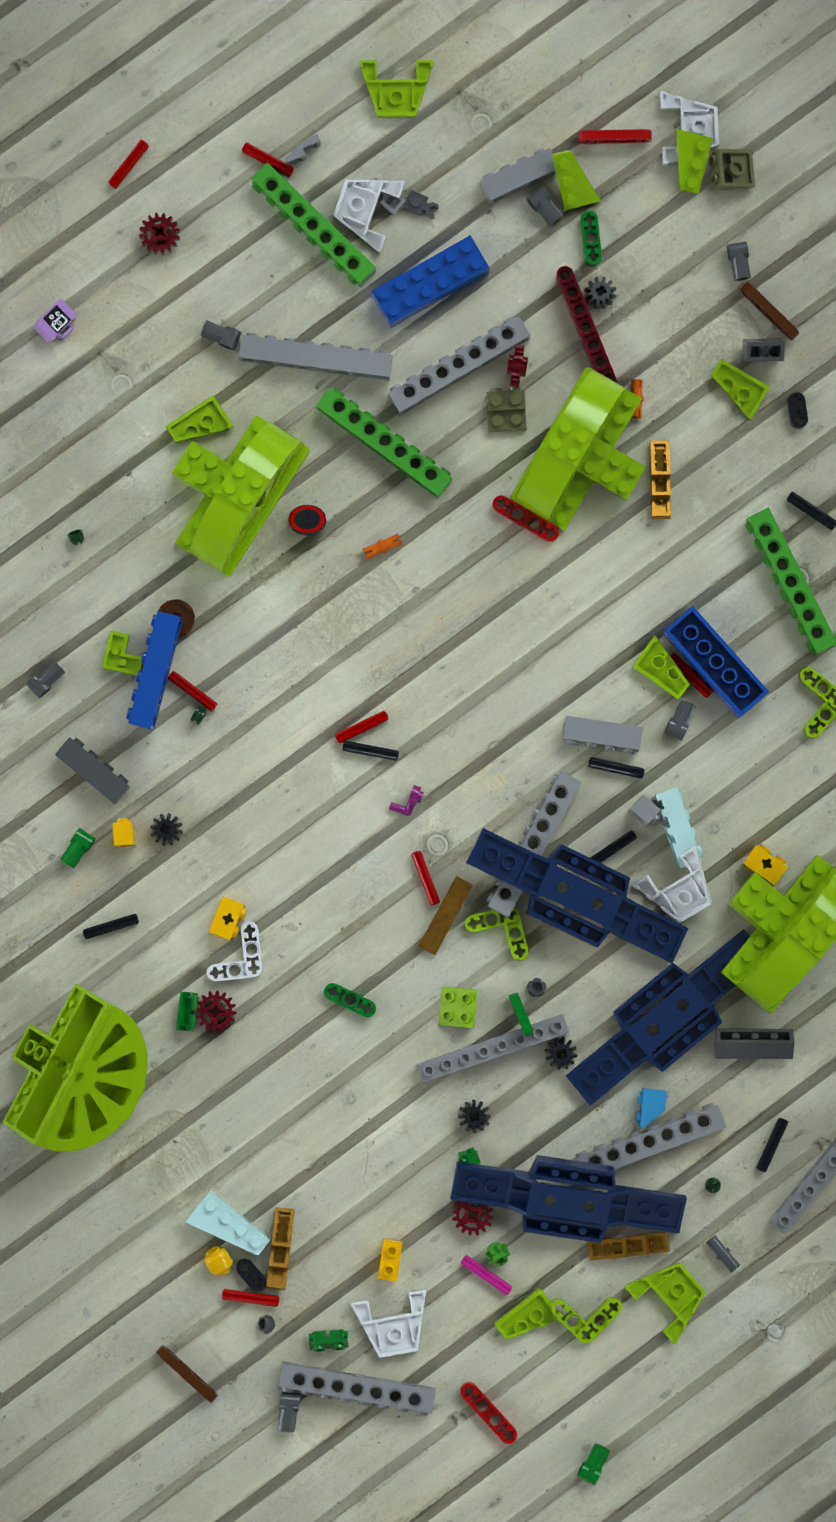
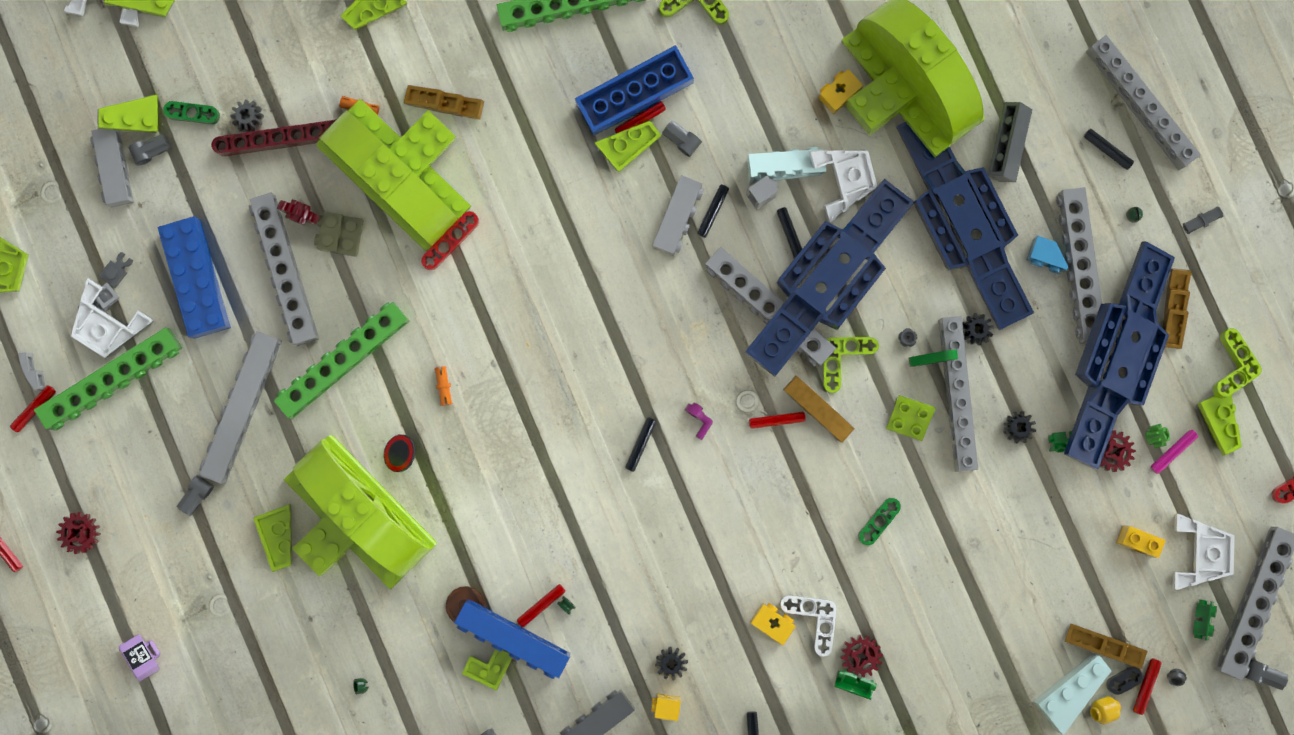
camera: 70 degrees left, 0 degrees up
(361, 726) = (615, 447): red axle -> none
(614, 136) = (97, 65): red beam -> none
(677, 1290) = (1228, 272): lime wing -> none

